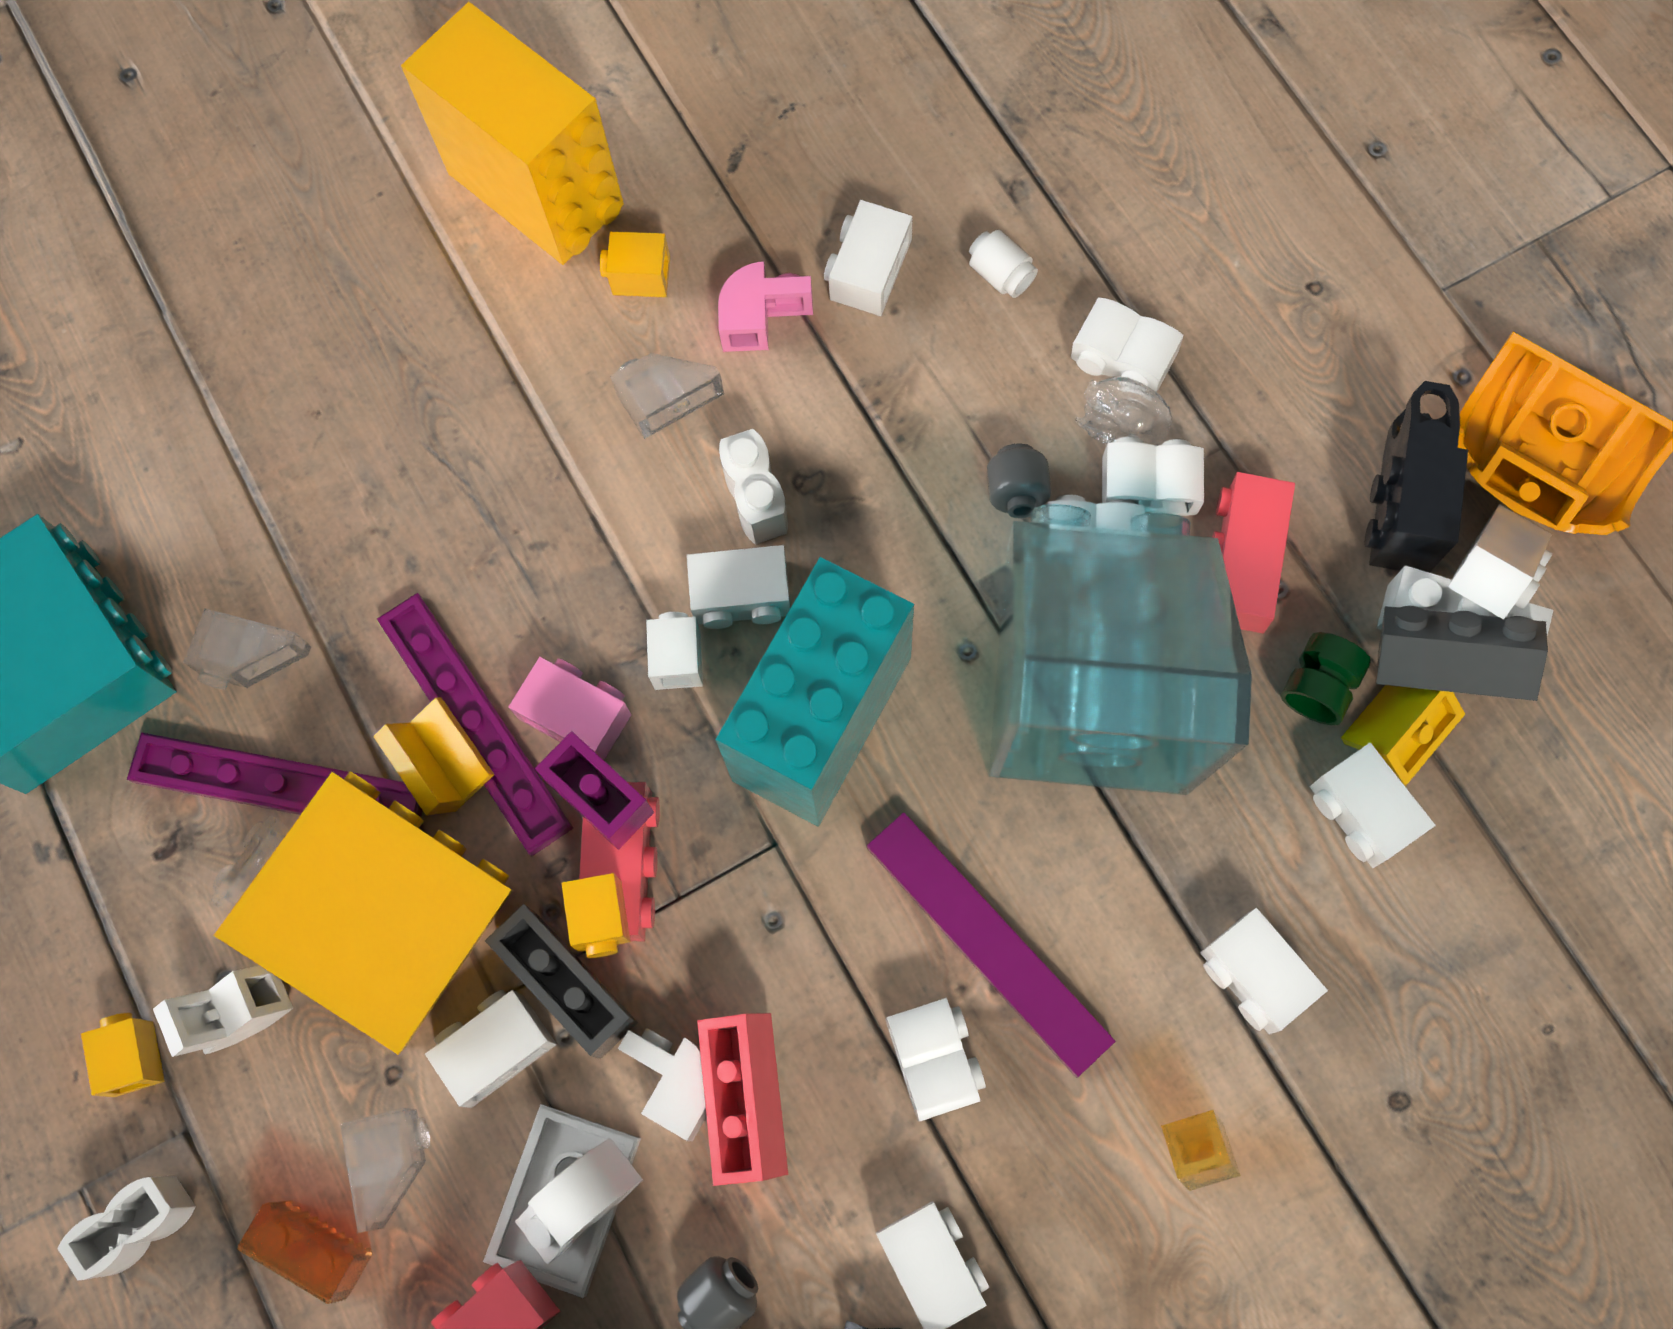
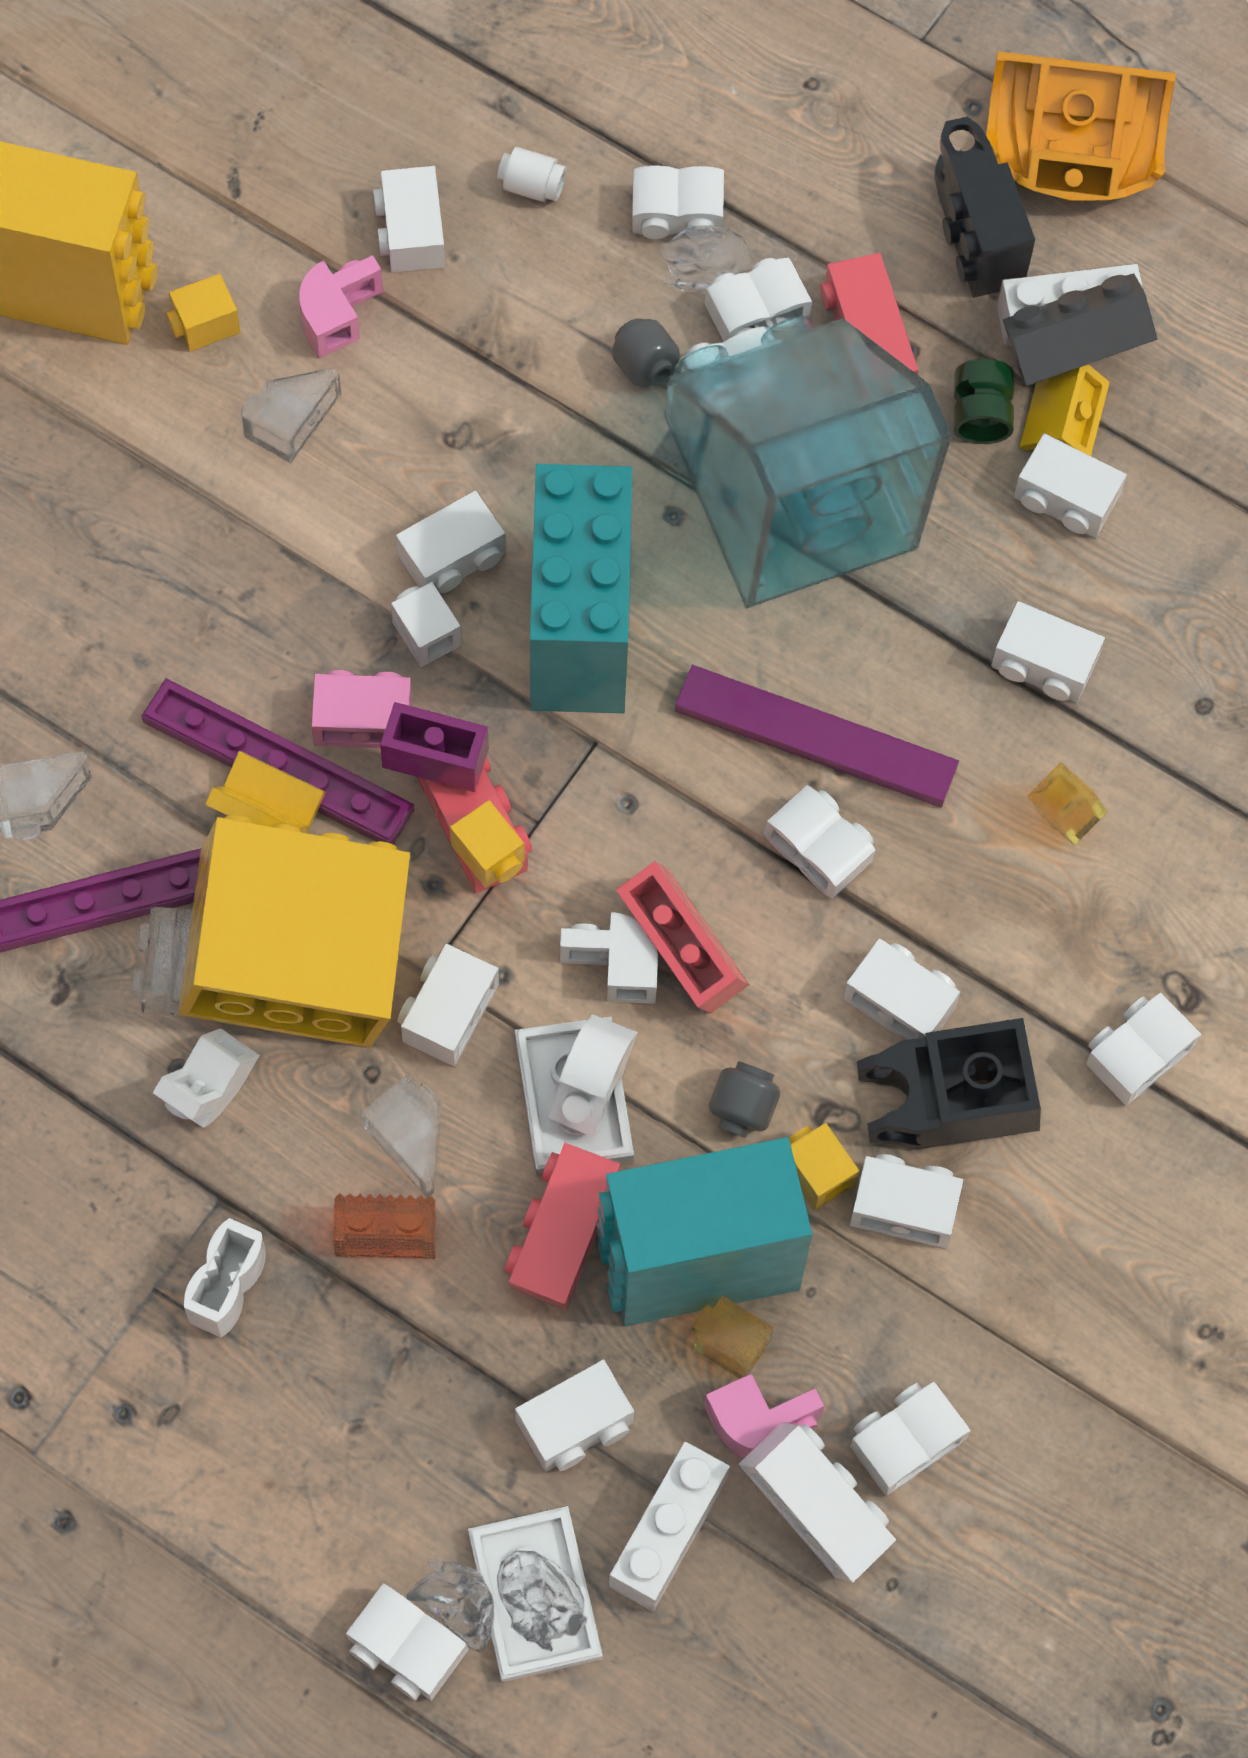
camera: 35 degrees left, 5 degrees down
(122, 1056) = (133, 1160): yellow brick -> none
(561, 982) = (482, 921): dark grey brick -> none
(753, 486) = (417, 456): white brick -> none
(1503, 563) = (1079, 242): white brick -> none

